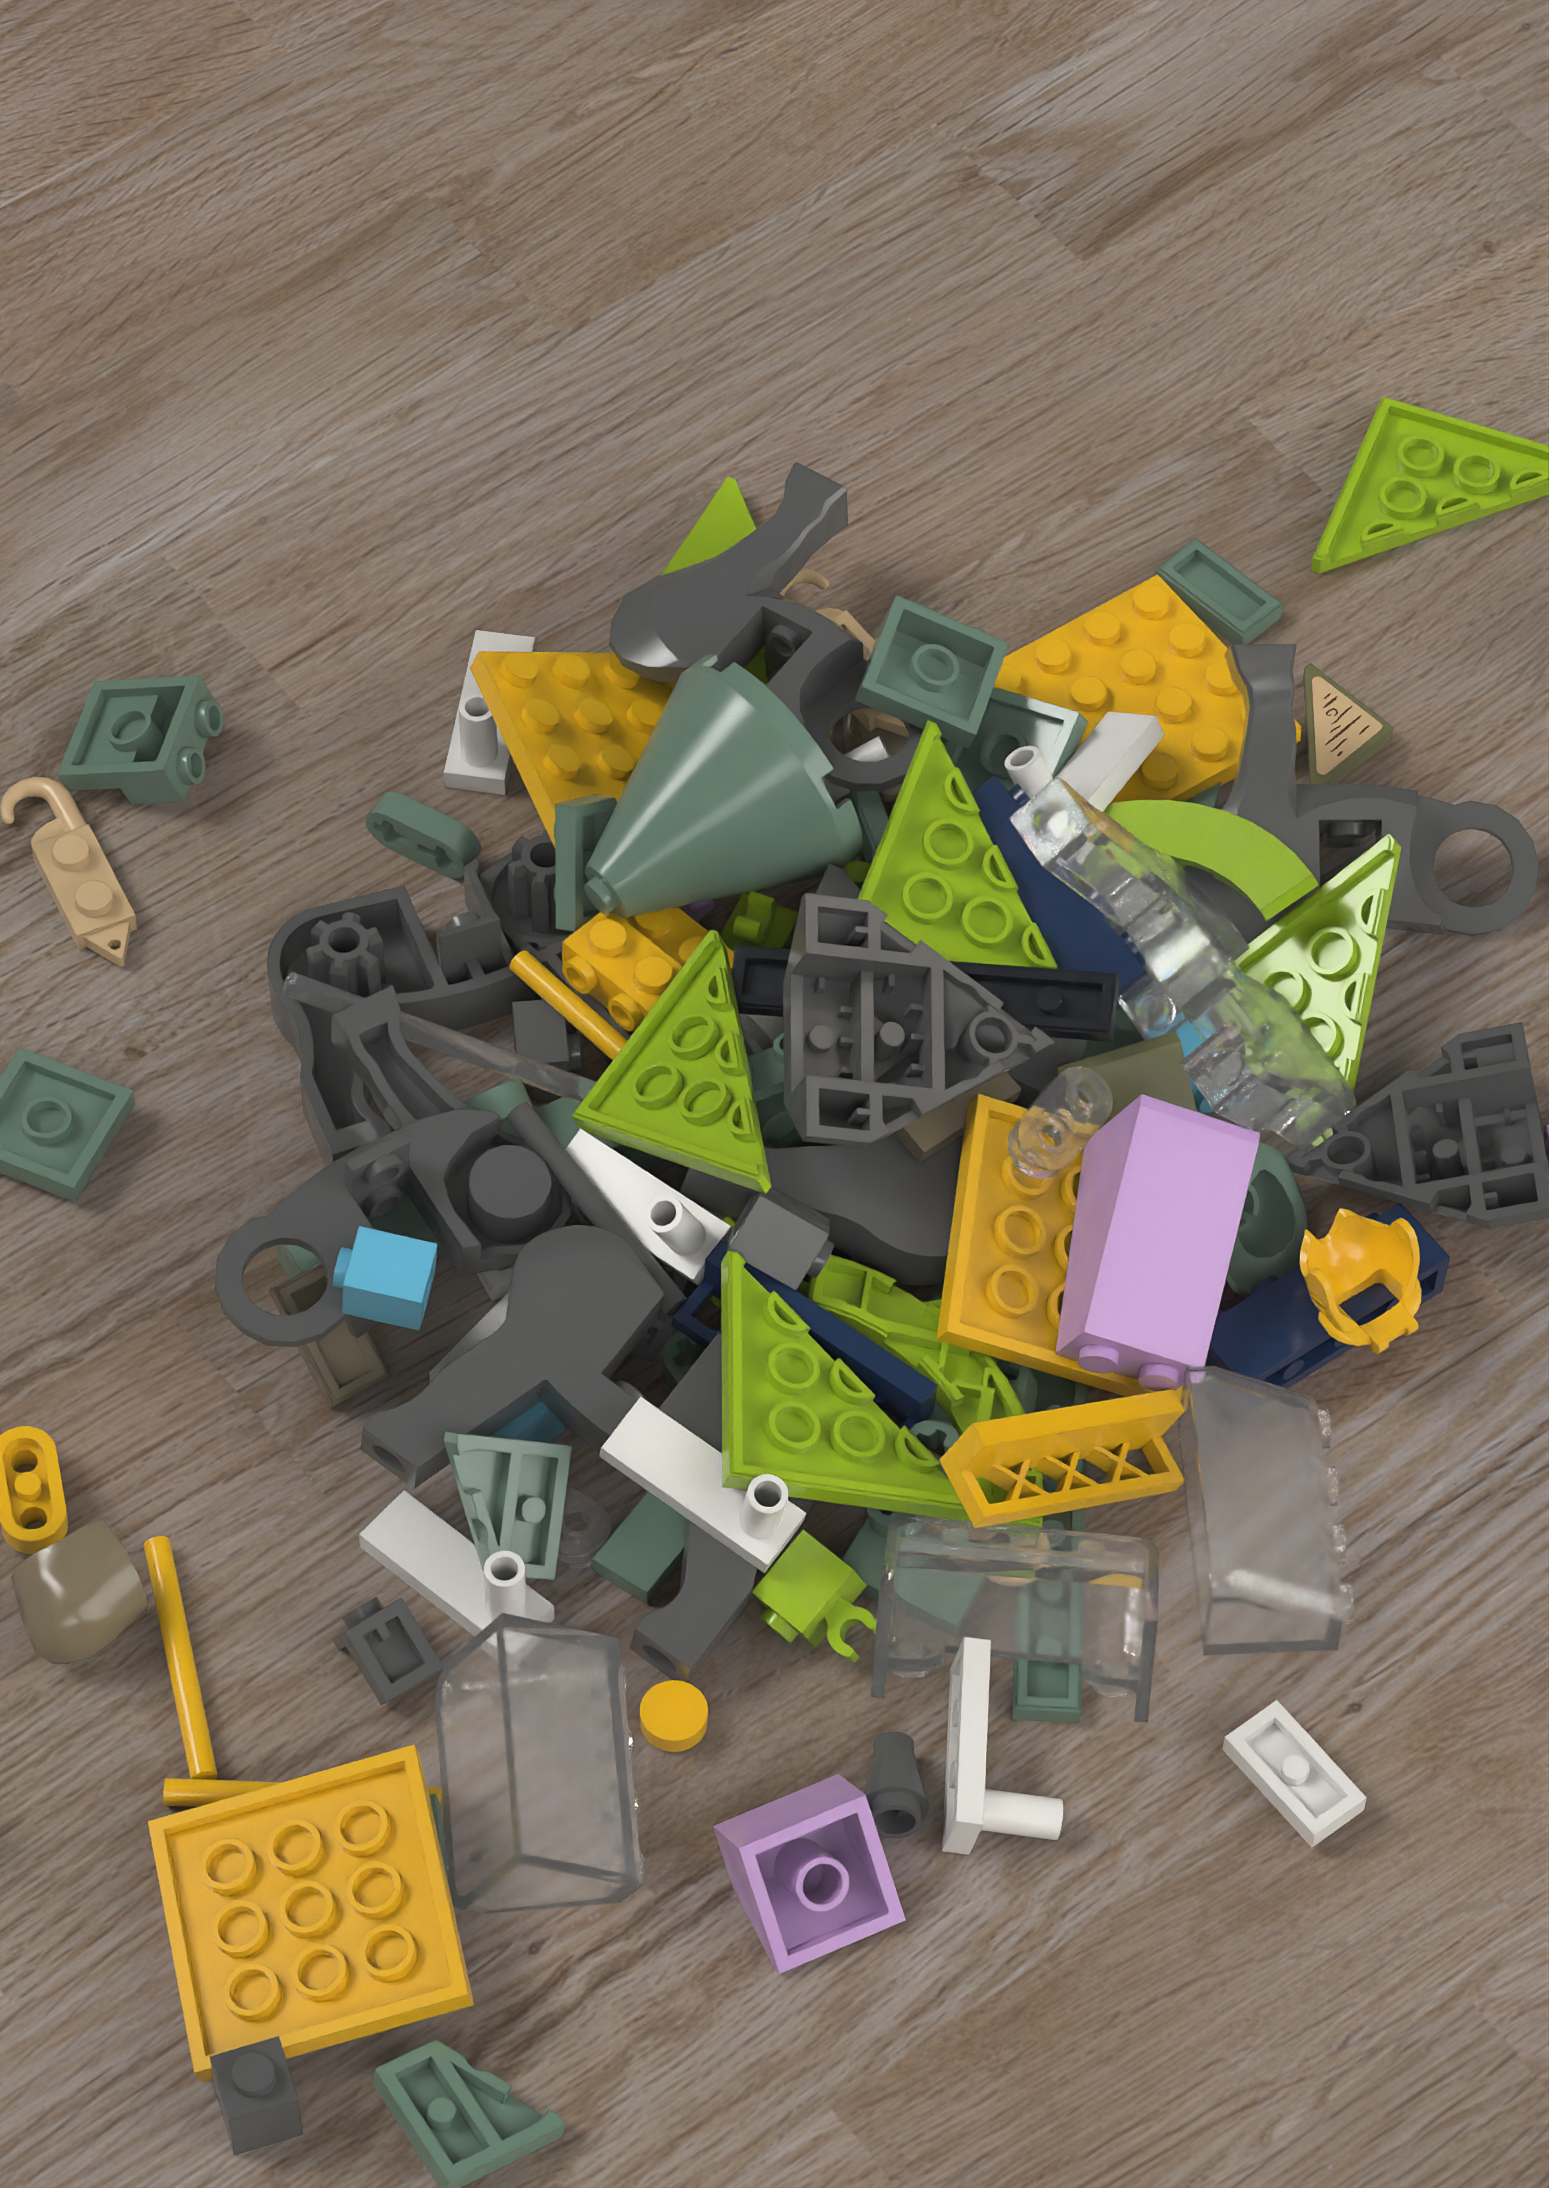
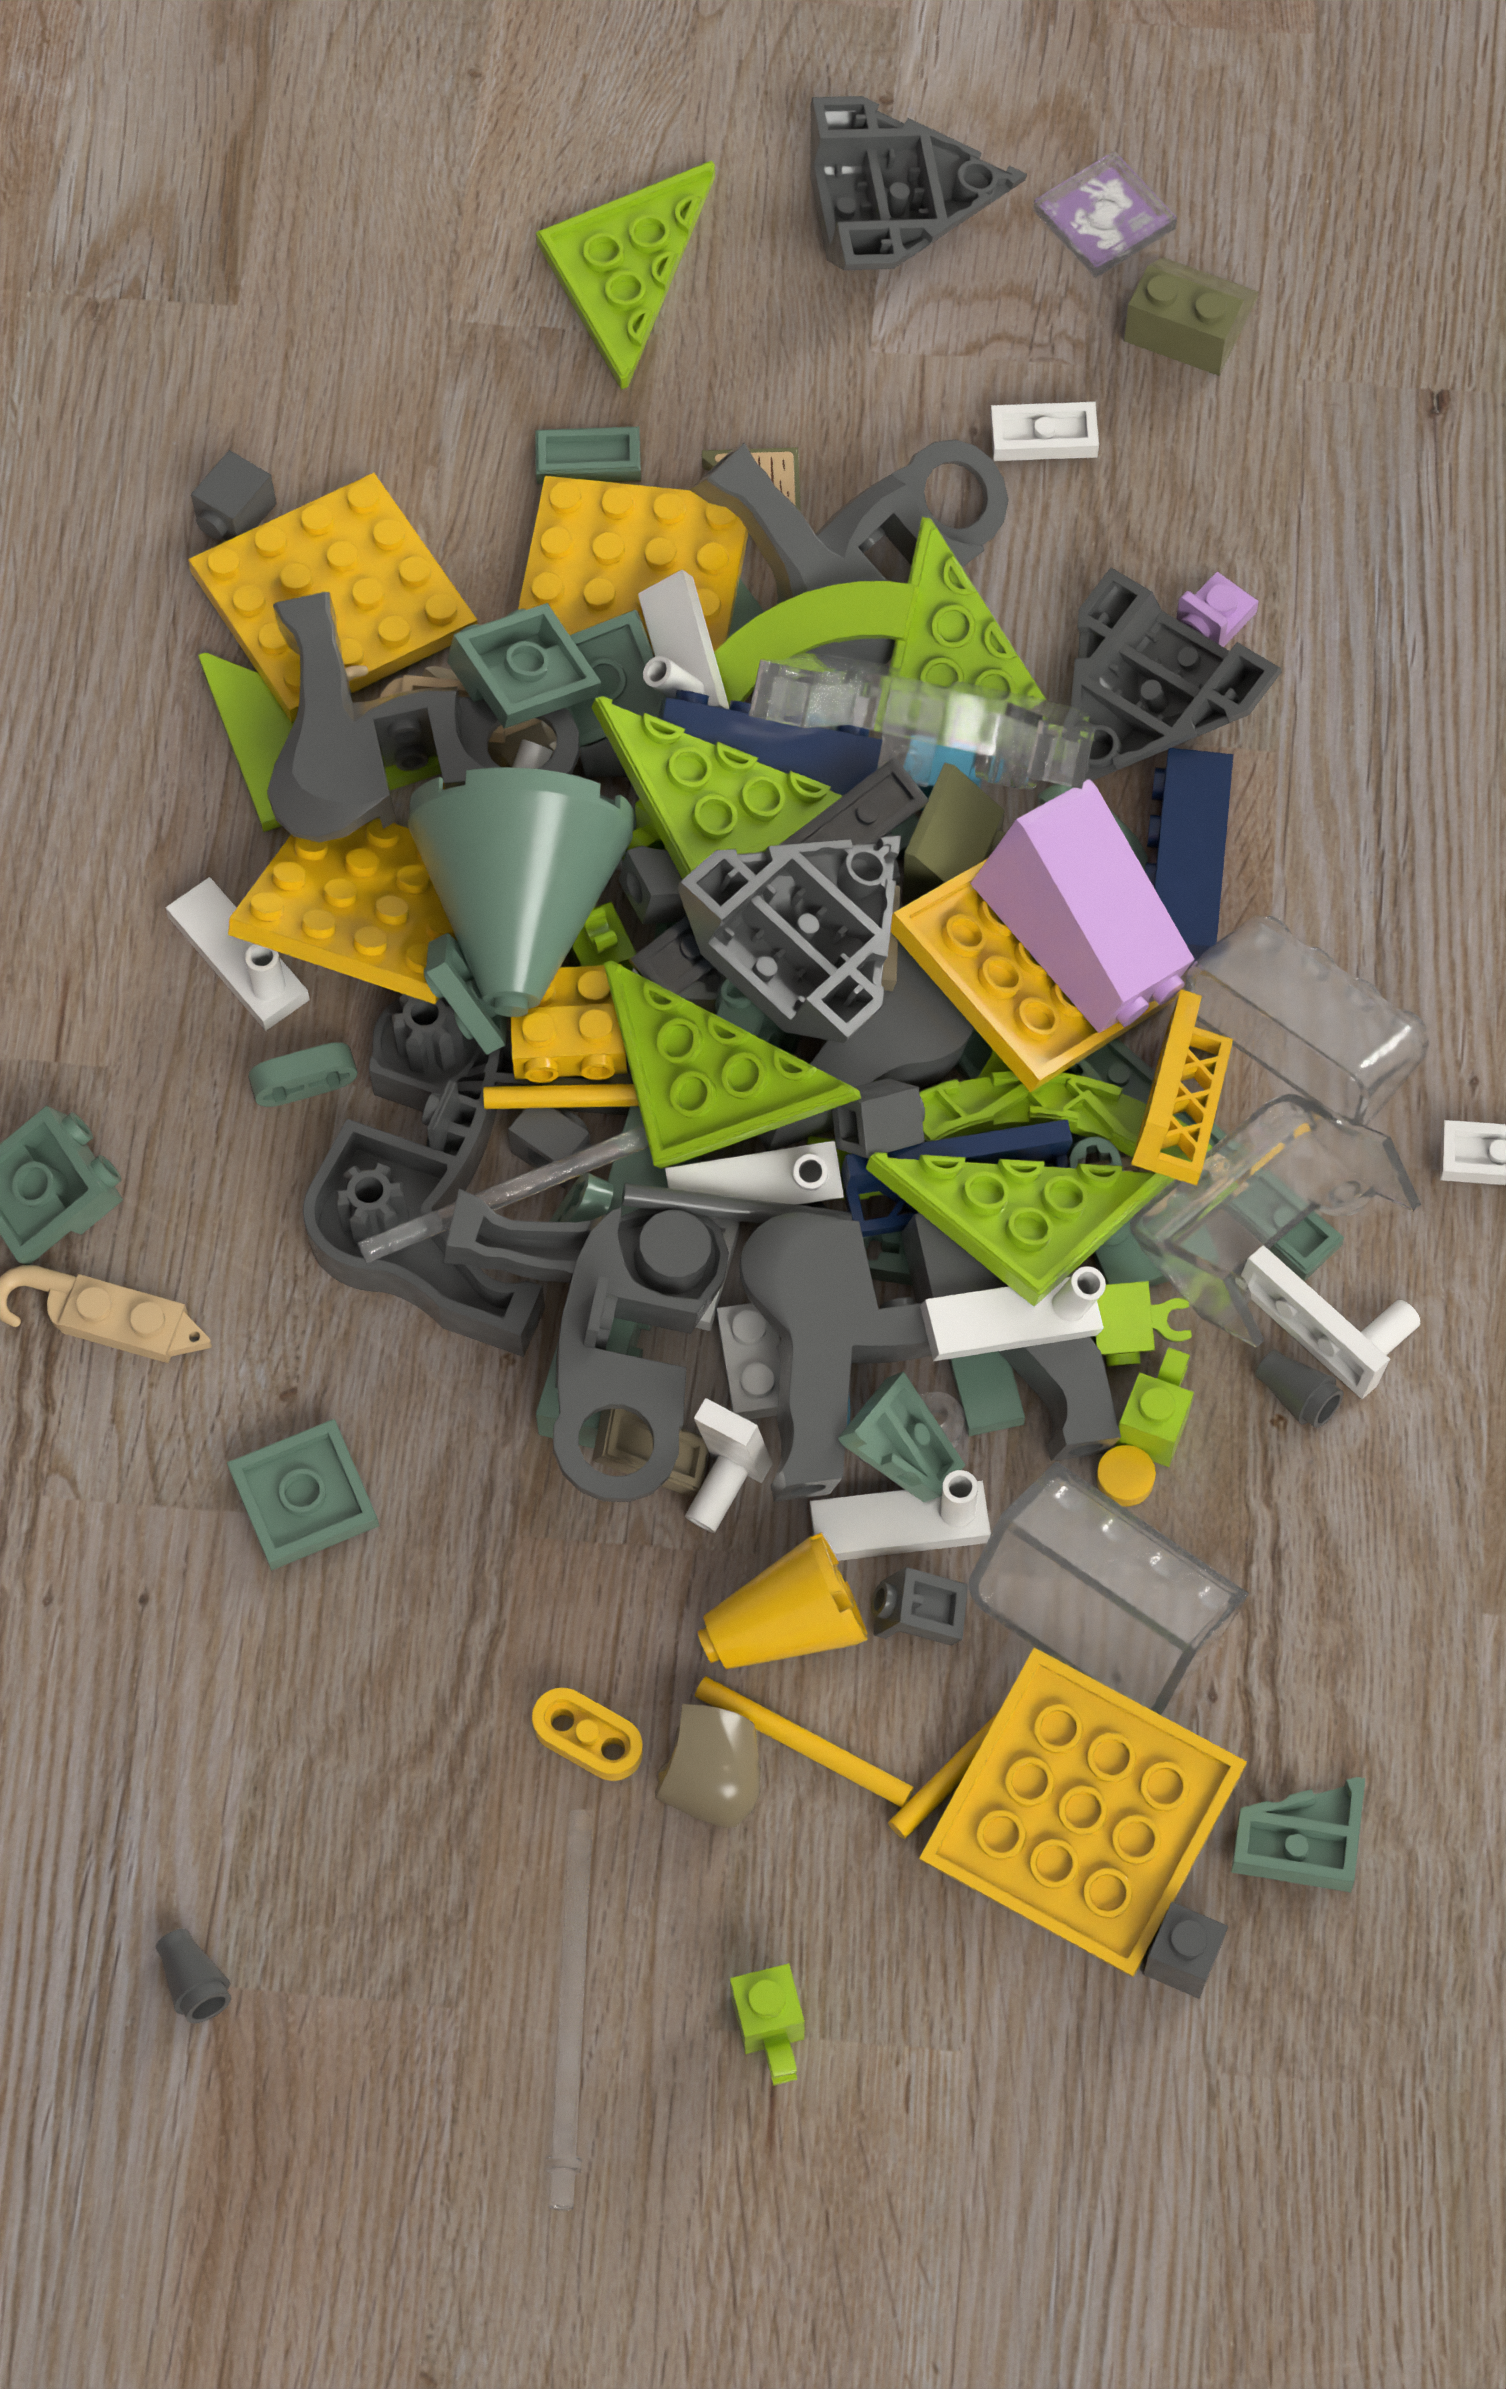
camera: 45 degrees left, 10 degrees up
(284, 1545) = (786, 1611): none -> yellow cone
(378, 1369) = (738, 1454): none -> white piece
(386, 1277) = (687, 1375): medium azure brick -> none
(750, 1688) = (1158, 1410): none -> lime brick
(810, 1872) = (1317, 1486): lavender slope -> none
(891, 388) = (233, 498): none -> dark grey brick
(919, 513) = (362, 550): none -> yellow plate
(1063, 1118) = (948, 877): clear plate -> none
(1351, 1260) = (1191, 809): yellow helmet -> none

